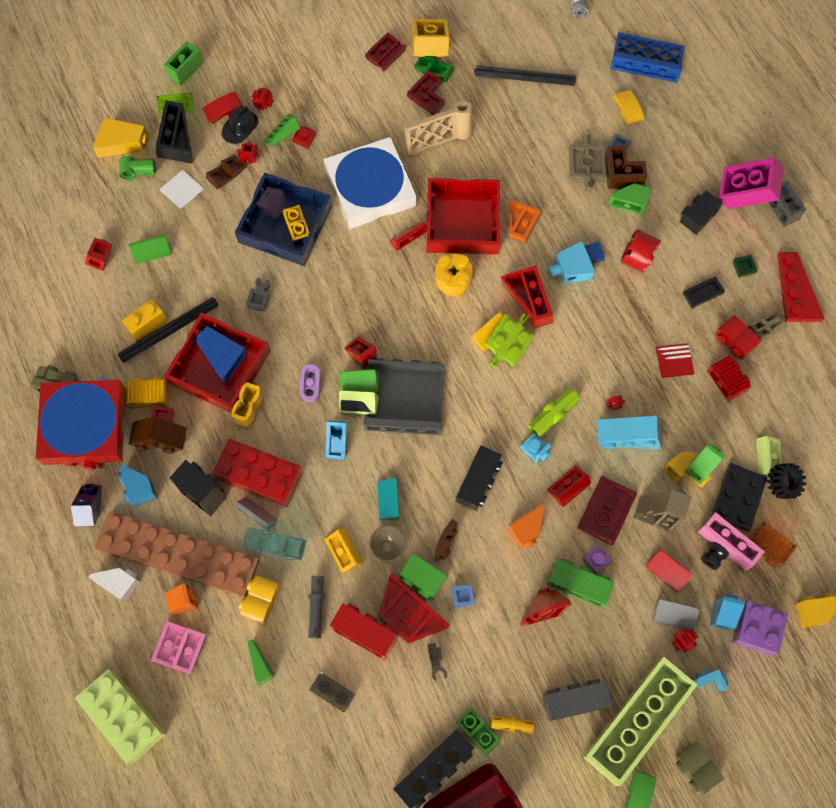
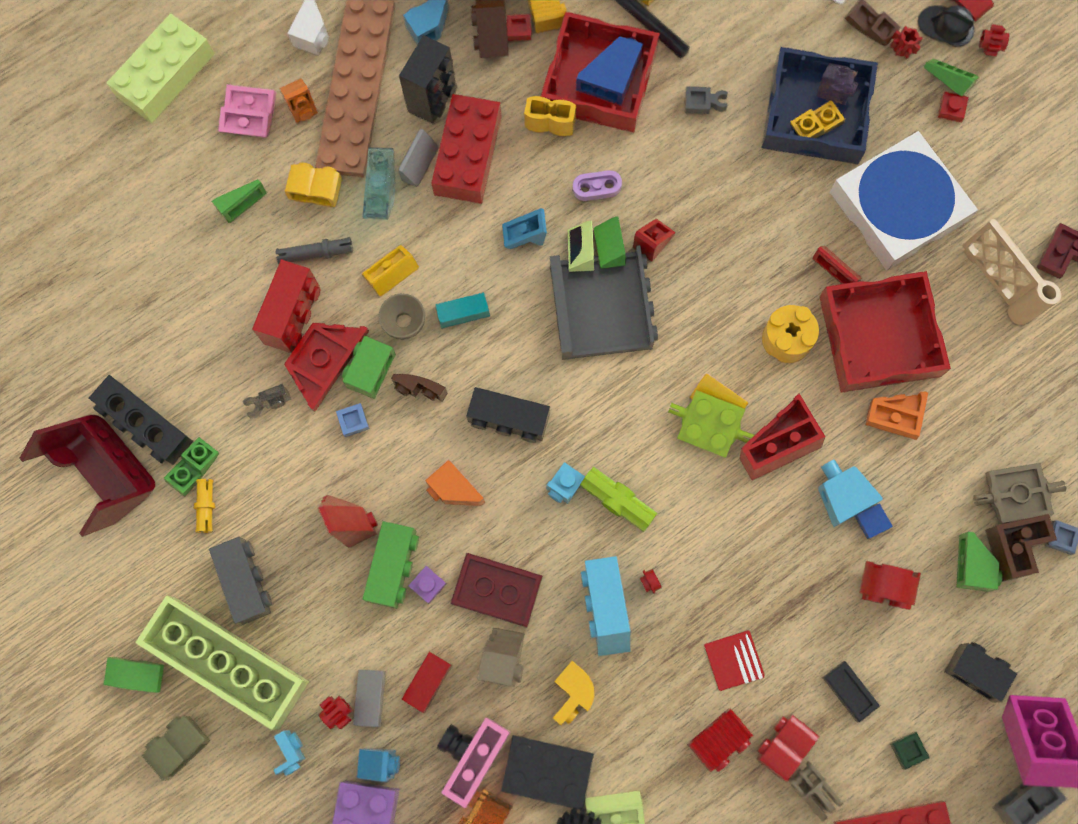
camera: 85 degrees right, 5 degrees up
(332, 692) = (216, 289): clear smoke plate -> none
(569, 486) = (521, 535): red slope -> none
(704, 463) = (572, 707): bright green slope -> none

